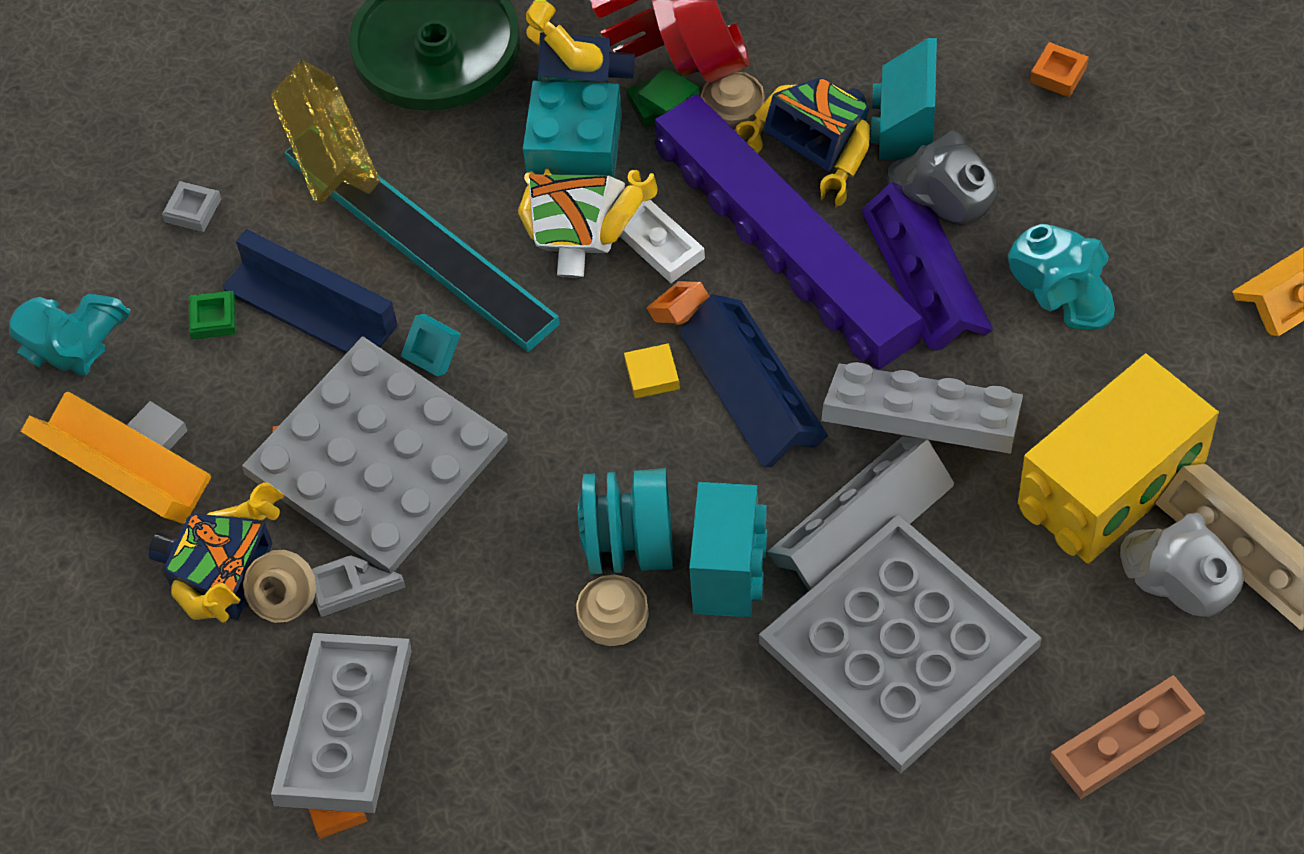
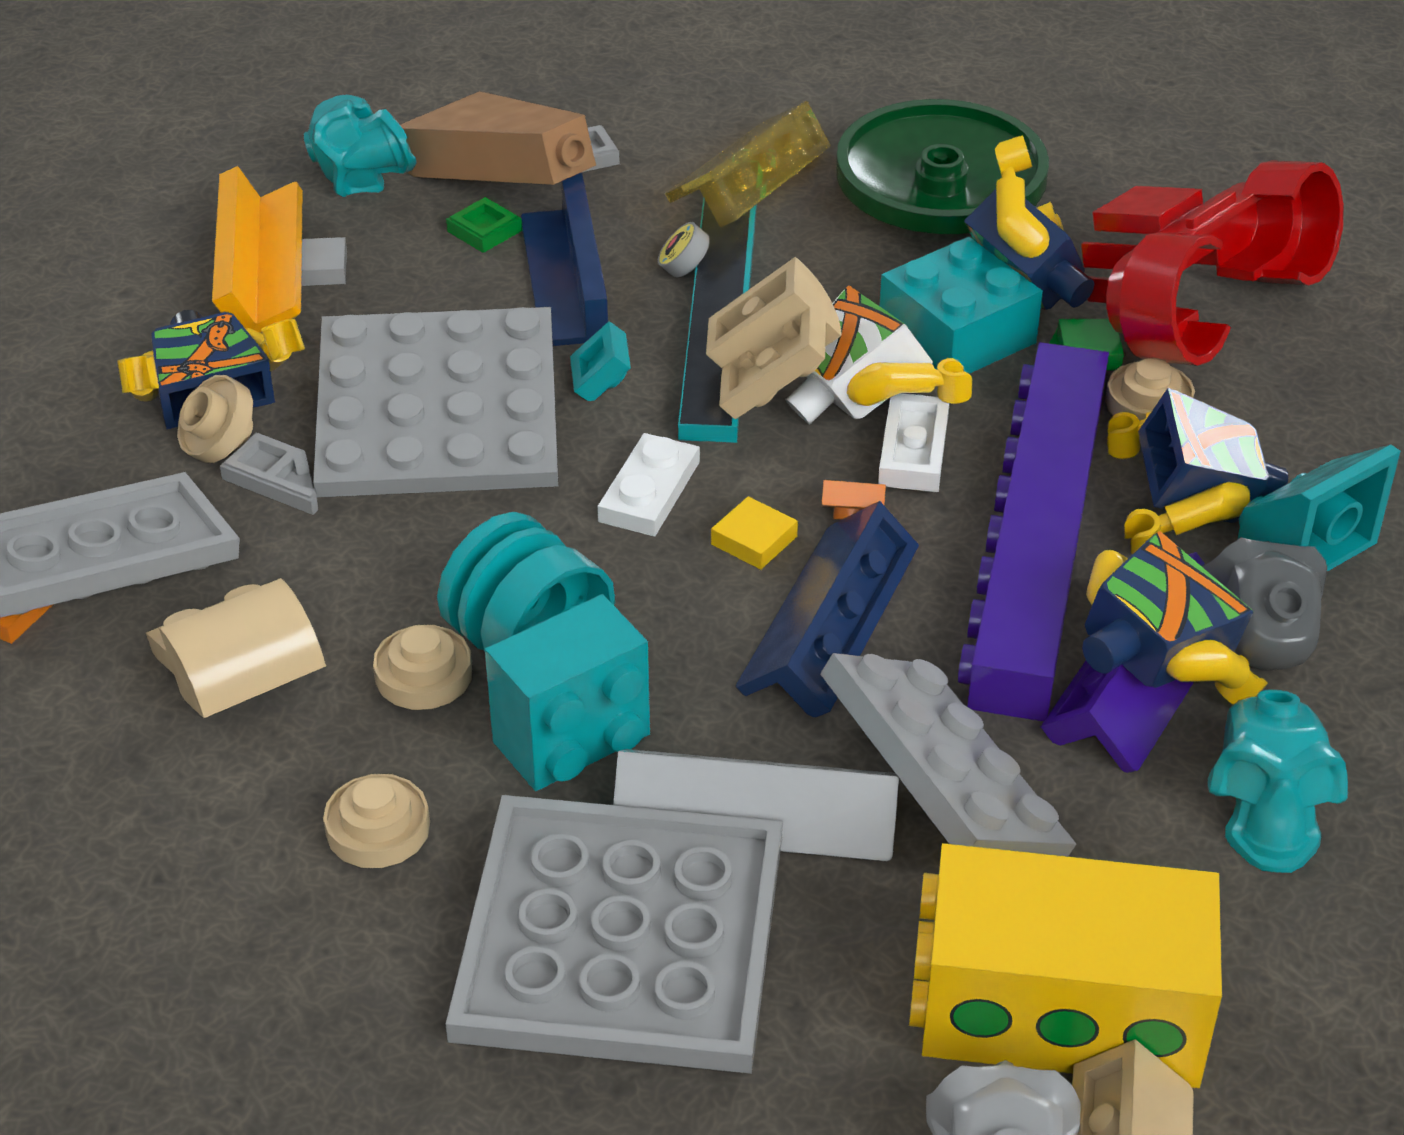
camera: 45 degrees right, 15 degrees down
(163, 248) = (499, 141): none -> medium nougat slope
(364, 227) = (683, 250): none -> light grey tile
(503, 696) = (238, 646): none -> tan brick
(532, 247) = (771, 336): none -> tan brick
(558, 394) = (648, 484): none -> white plate
(716, 709) = (376, 820): none -> tan plate
(933, 236) = (1167, 621): none -> torso

